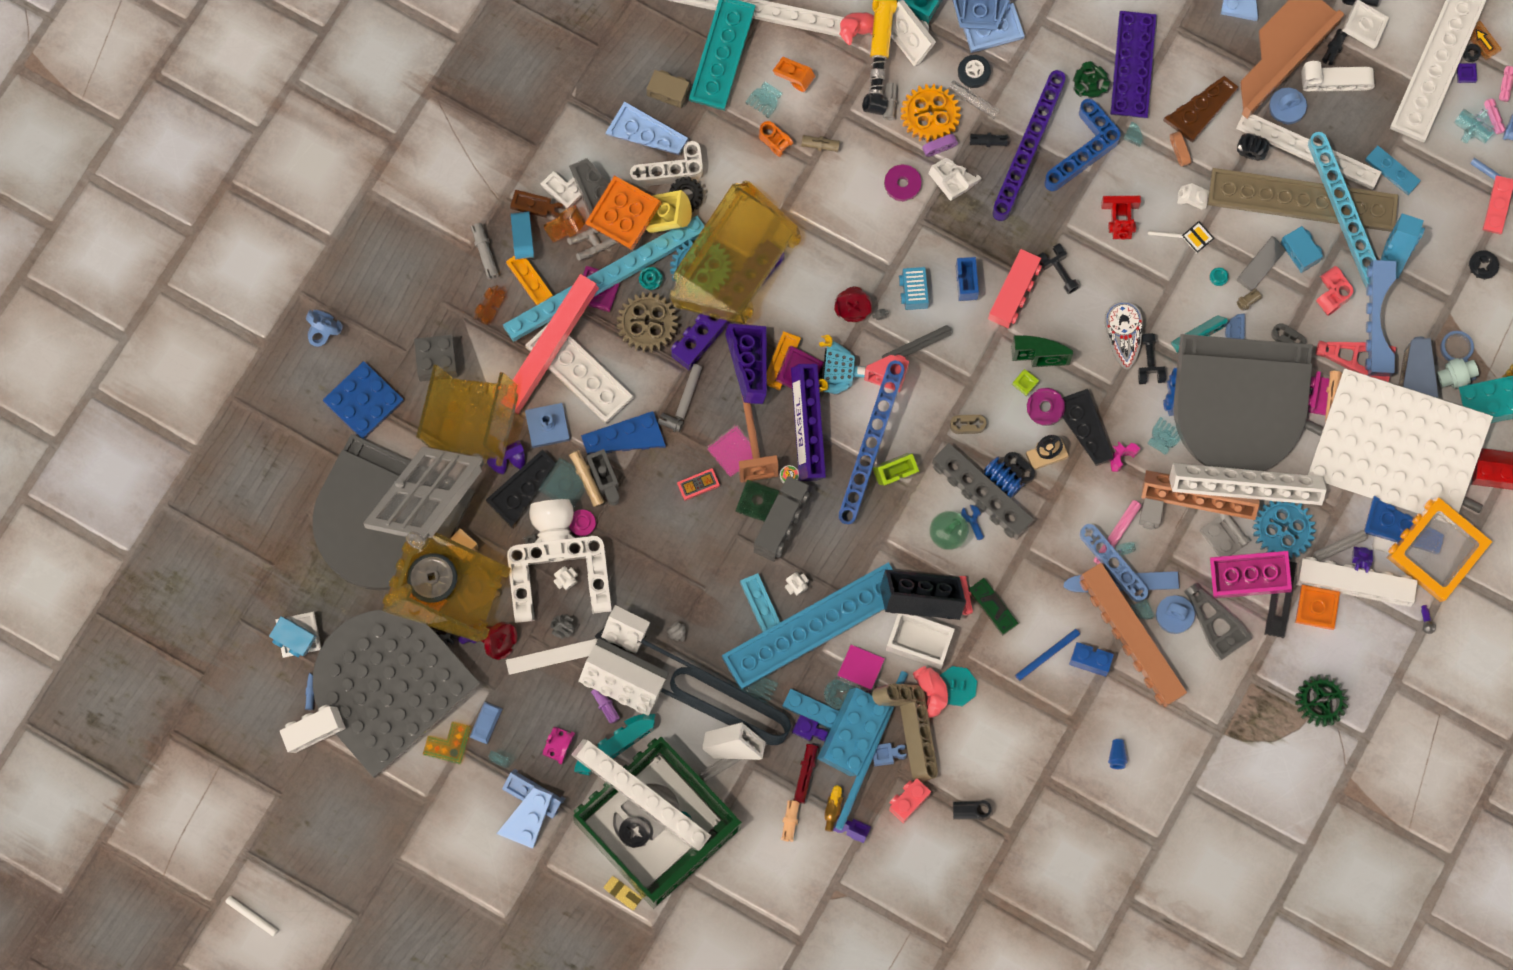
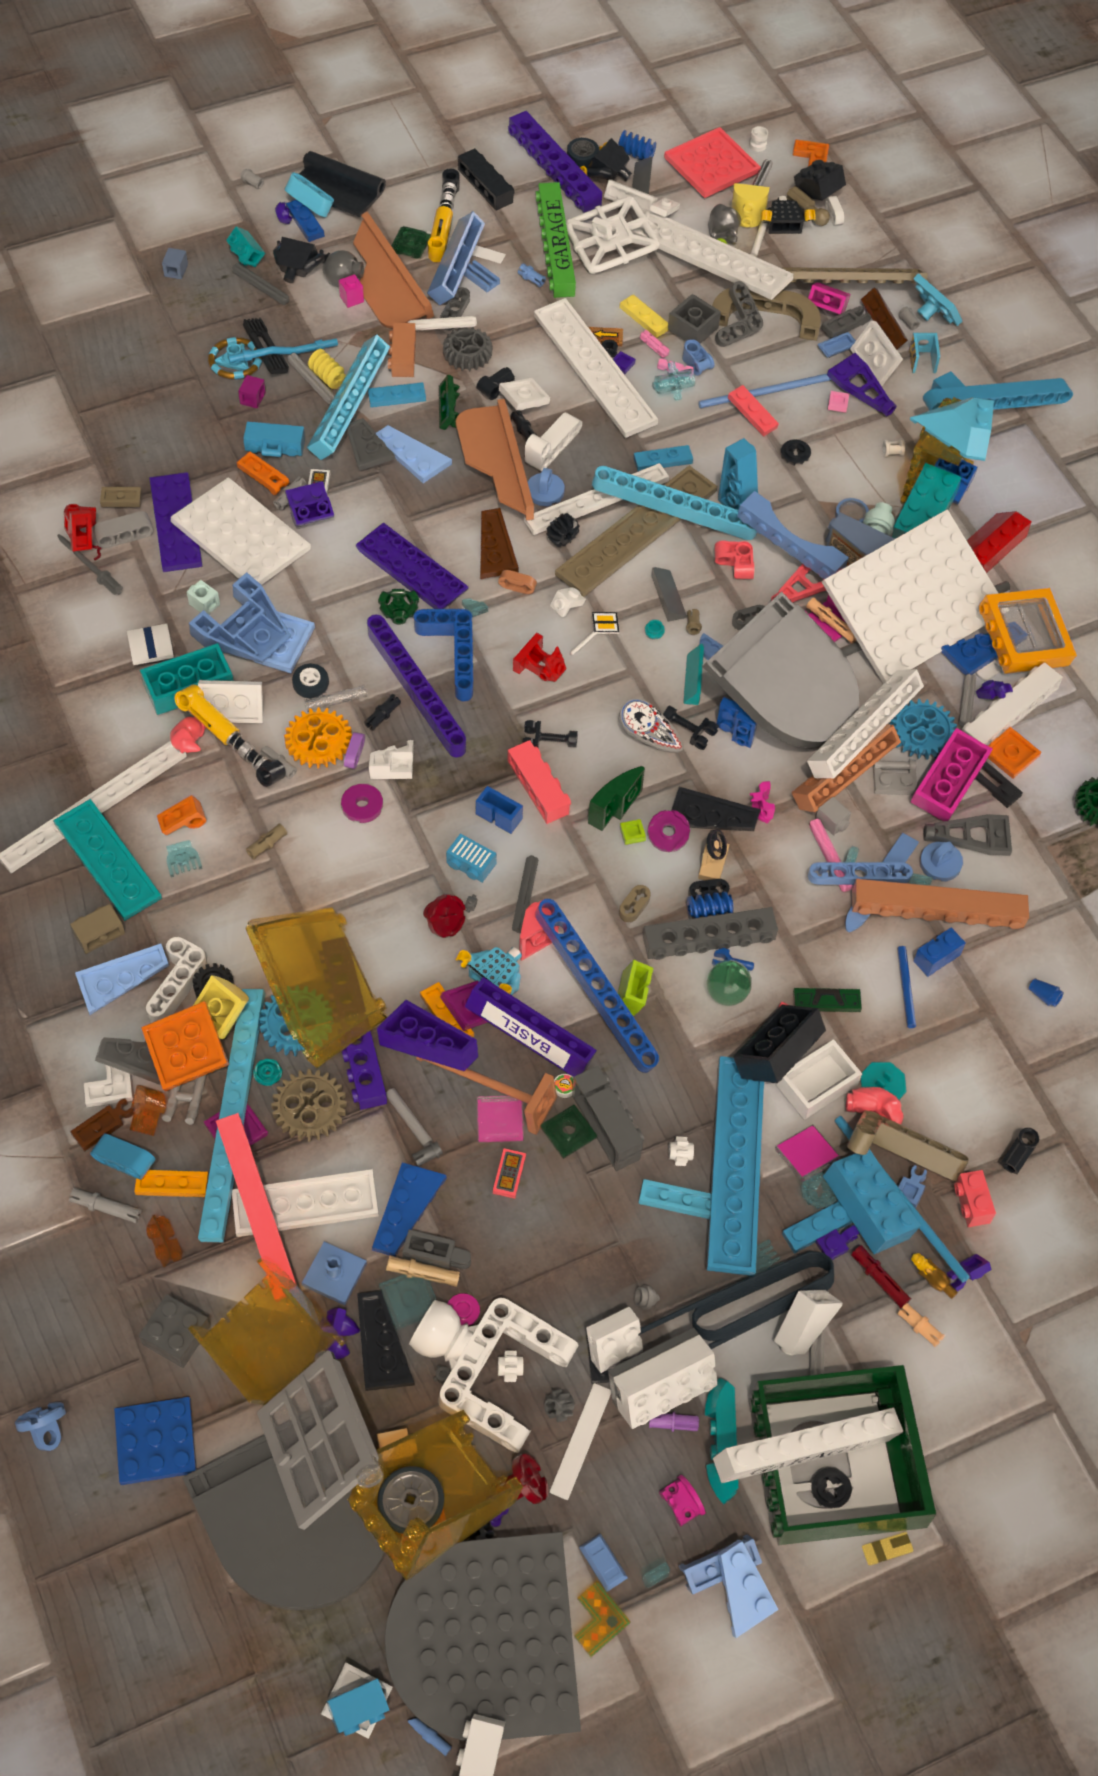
camera: 55 degrees left, 15 degrees down
(777, 140) = (227, 874): orange piece -> none
(1162, 439) = (769, 764): clear light blue piece -> none
(1302, 249) = (681, 557): dark azure brick -> none
(1428, 625) = (1087, 685): piece -> none

